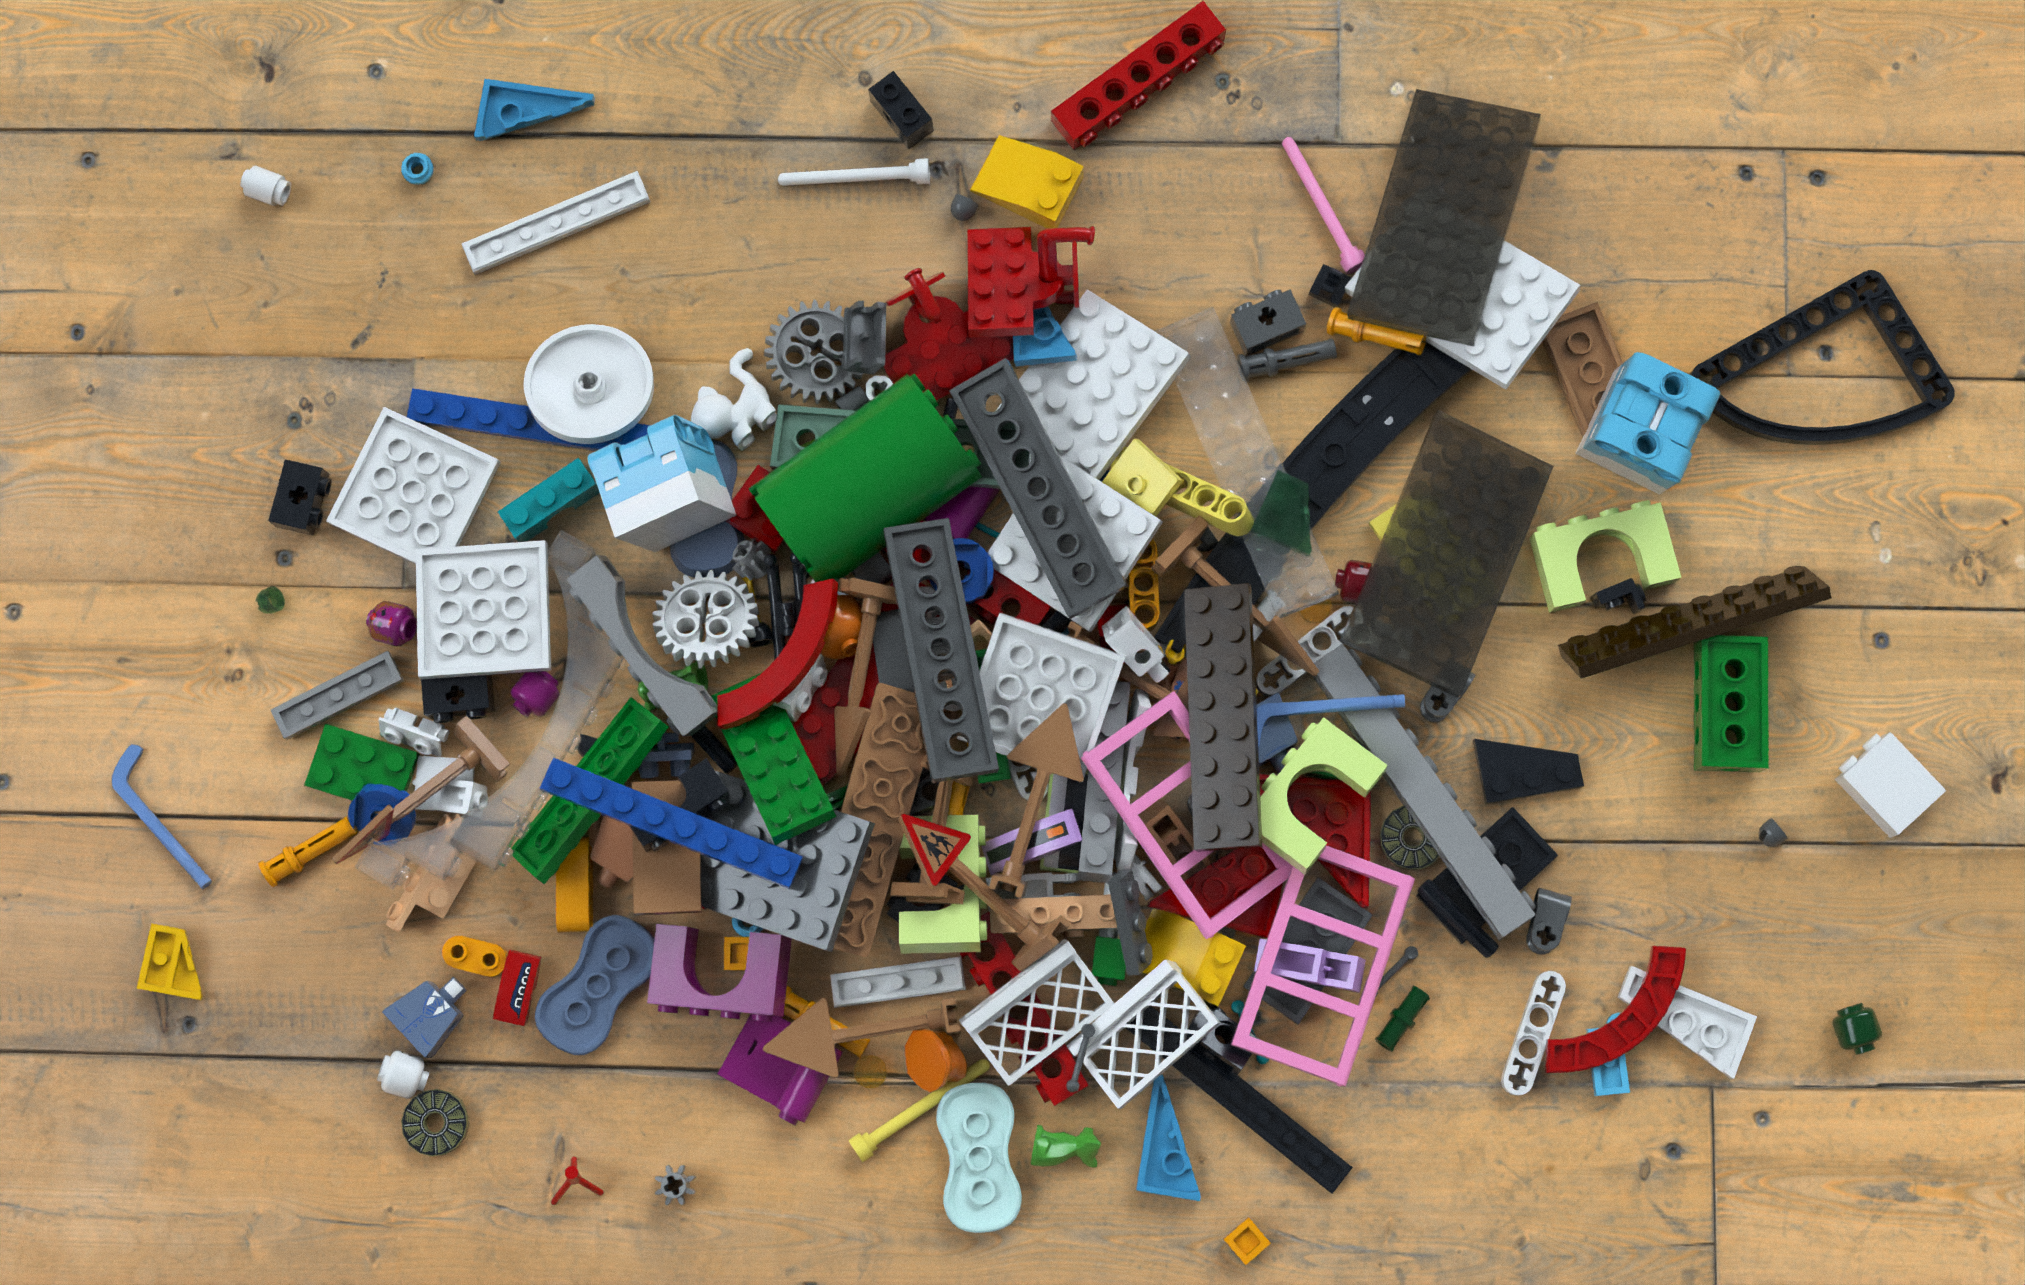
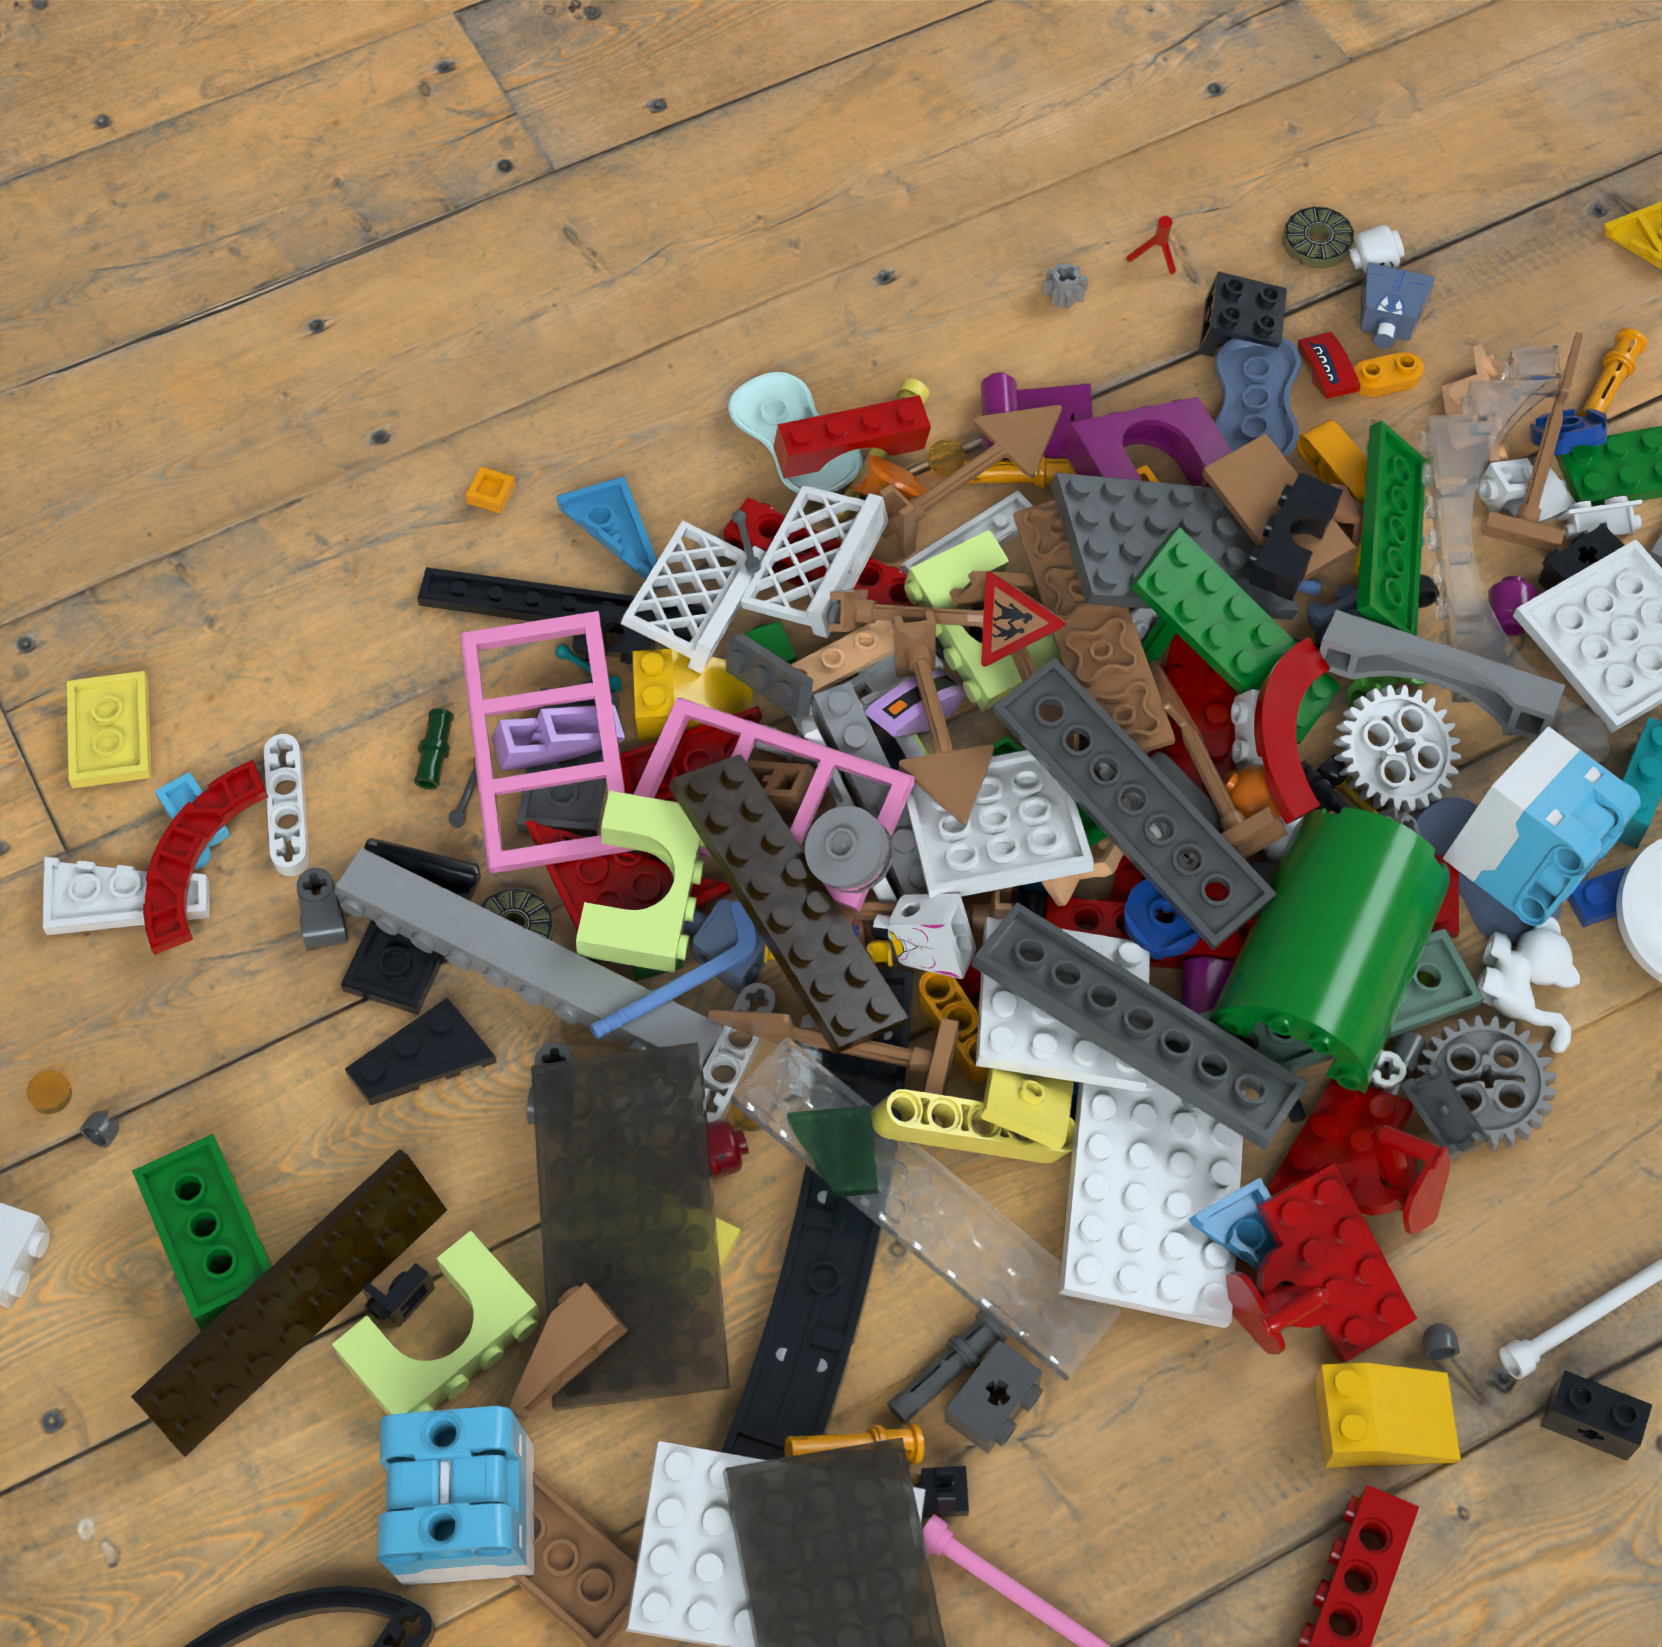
camera: 145 degrees right, 20 degrees down
(556, 1068) = (1242, 311): none -> black bracket
(671, 823) = (1288, 501): blue plate -> none
(942, 1112) = (812, 442): none -> red arch
(1057, 1148) = (724, 472): bright green animal -> none
(1160, 725) = (849, 849): none -> light grey piece
(1516, 492) = (569, 1342): none -> medium nougat slope
(1642, 1174) = (108, 729): none -> light yellow plate
(1797, 885) = (49, 1092): none -> clear yellow tile

